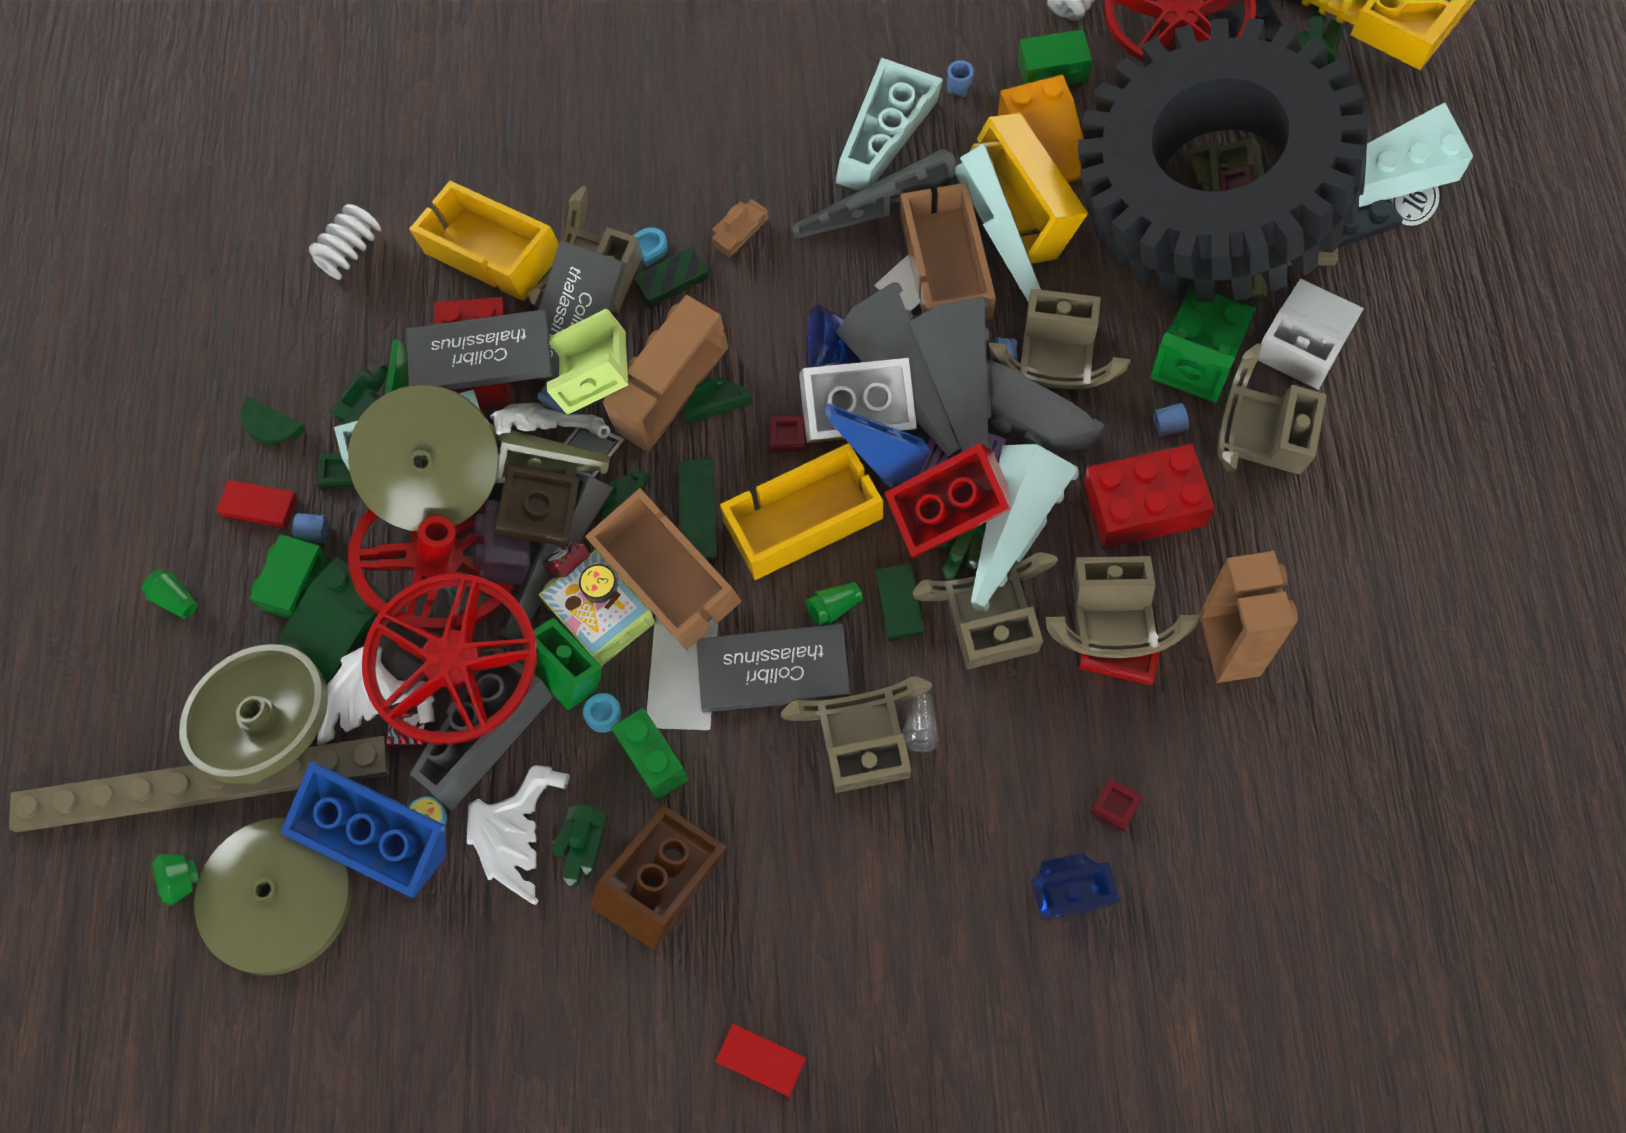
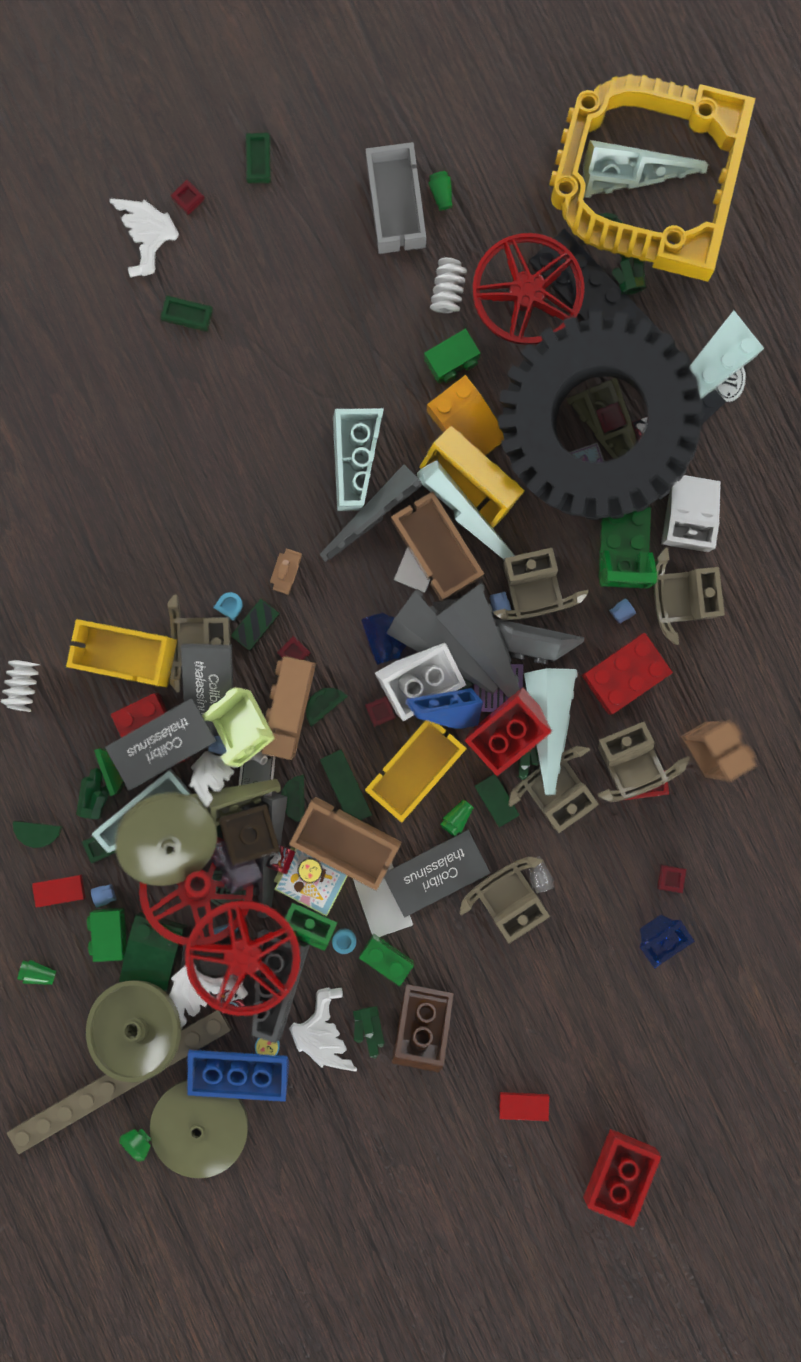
camera: 25 degrees left, 20 degrees up
(959, 78) = (391, 388): medium blue hose -> none

